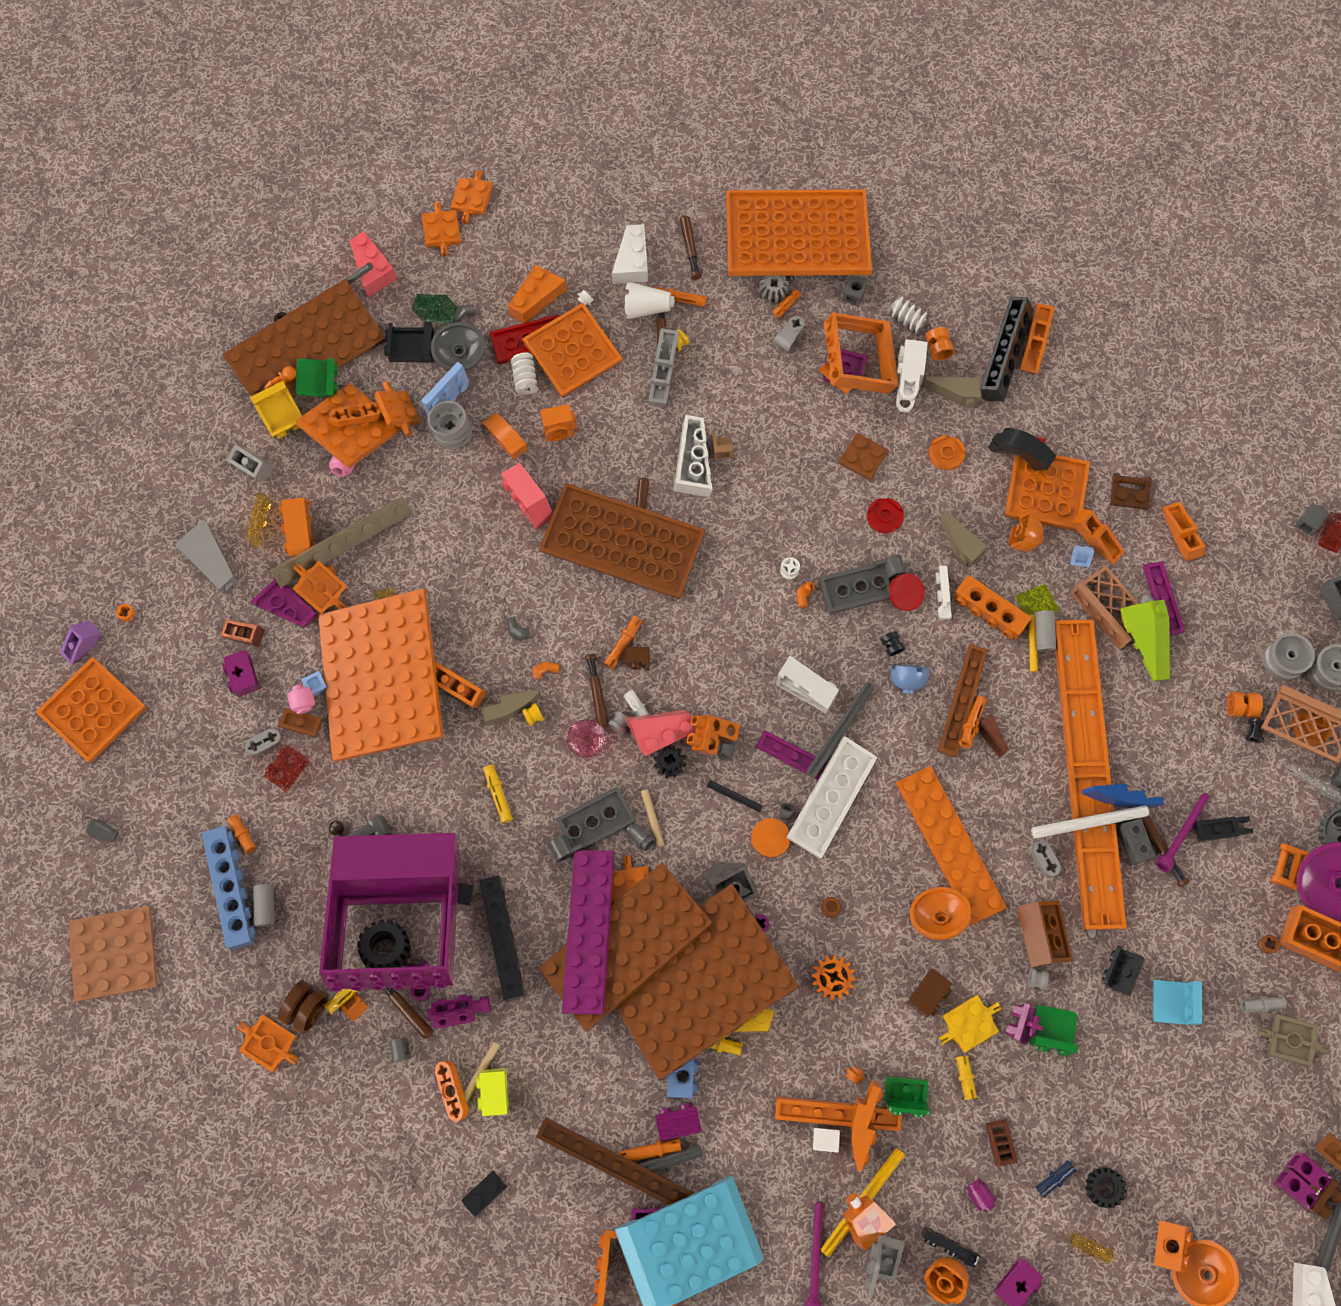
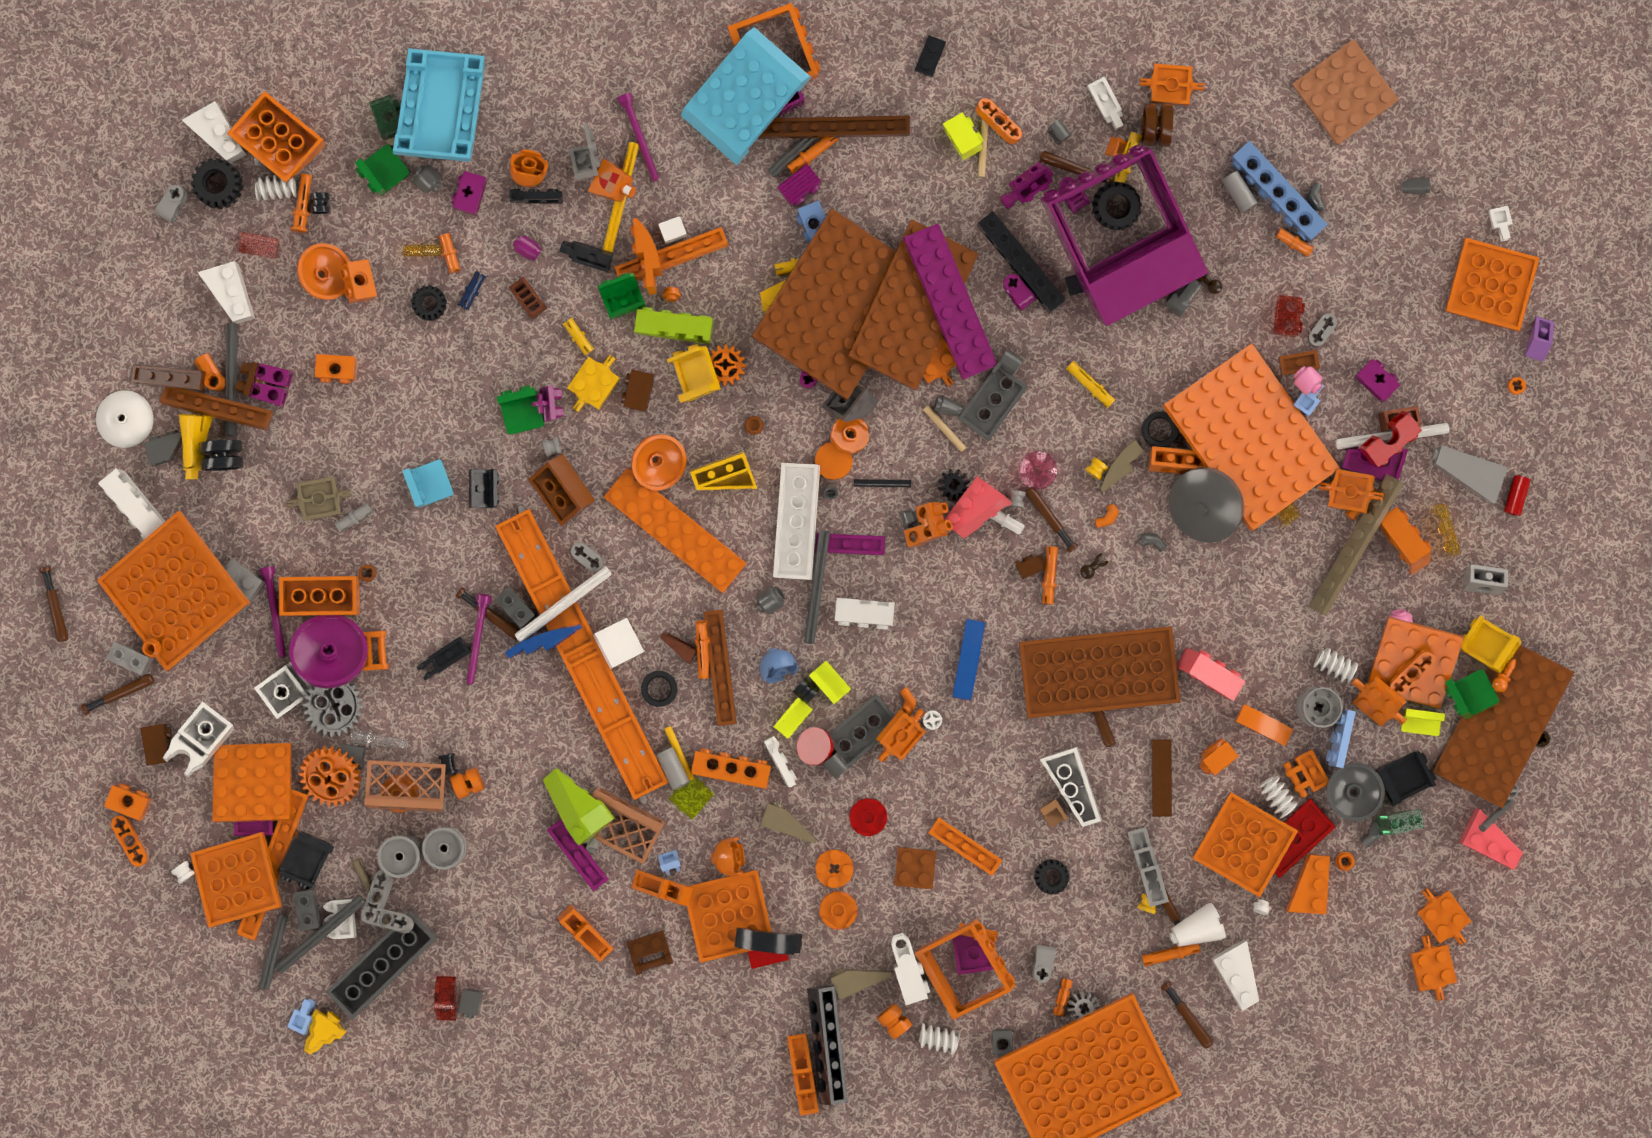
camera: 150 degrees right, 15 degrees up
(48, 763) = (1501, 219): none -> white plate
(182, 520) = (1517, 495): none -> red axle
(200, 866) = (1314, 198): none -> dark grey arm
(243, 615) = (1403, 431): none -> arch
(264, 623) = (1356, 441): none -> white axle
(338, 1057) = (1106, 102): none -> white hinge
(368, 378) = (1422, 722): none -> neon yellow panel
(416, 453) = (1336, 664): none -> white piece
(447, 711) = (1145, 430): none -> black tyre
(452, 633) = (1206, 504): none -> dark grey dish
(485, 385) = (1312, 771): none -> orange plate
(494, 299) = (1351, 861): none -> orange plate
(519, 909) = (1021, 295): none -> magenta piece
(584, 631) = (1090, 569): none -> dark brown arm
(613, 434) = (1161, 778): none -> reddish brown tile
(732, 603) = (968, 659): none -> blue slope
(748, 842) = (846, 444): none -> orange plate
(749, 407) = (1051, 888): none -> black tyre
(811, 453) = (965, 846): none -> orange plate
(825, 566) = (901, 735): none -> orange plate
(867, 642) = (830, 682): none -> neon yellow panel
(867, 982) = (694, 373): none -> yellow panel
(867, 1040) = (674, 326): none -> lime wedge
(881, 872) = (725, 473): none -> yellow wedge
(889, 738) = (770, 600): none -> dark grey head
(915, 627) = (793, 718): none -> neon yellow panel
(922, 1157) = (588, 255): none -> black hinge
(931, 496) = (832, 879): none -> orange plate
(1036, 695) = (656, 674): none -> black tyre
(1049, 764) = (618, 643): none -> white tile
(1063, 1230) = (449, 253): none -> orange pin
(1242, 1169) = (325, 363): none -> orange brick

